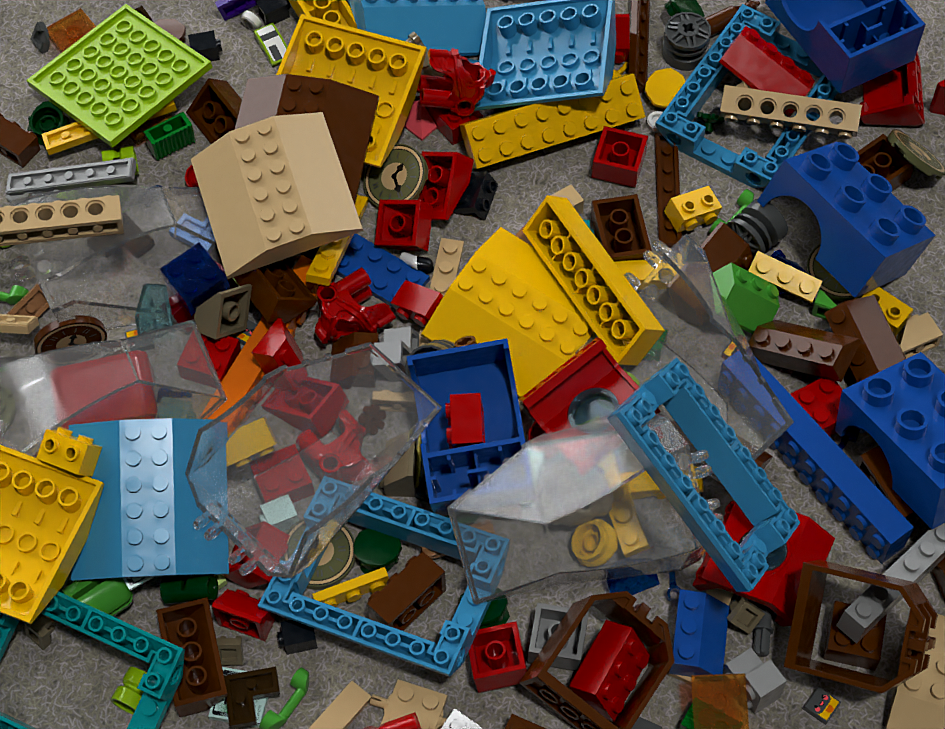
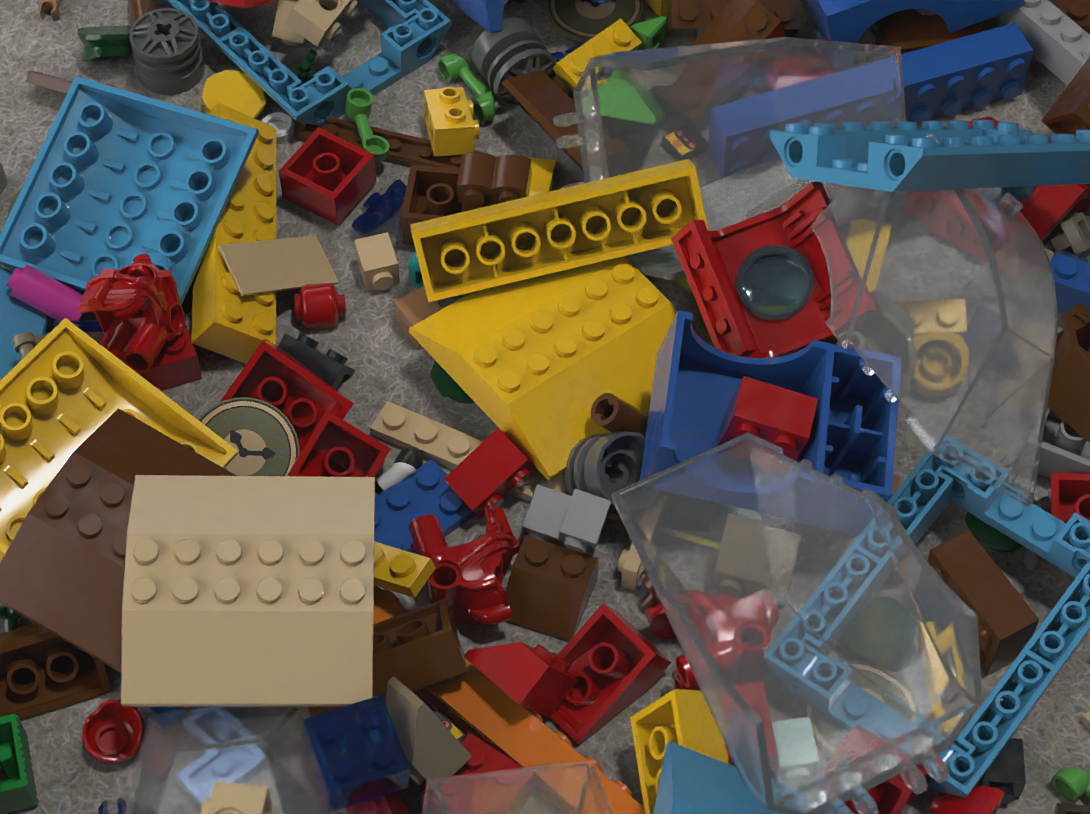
camera: 75 degrees left, 5 degrees down
(471, 40) = (45, 294): none -> dark pink brick
(521, 185) = (319, 306): none -> red head
(533, 150) = (277, 264): none -> tan piece
(595, 192) = (380, 208): none -> clear blue dish
(631, 238) = (492, 179): none -> reddish brown brick
(686, 158) = (358, 109): none -> bright green bar

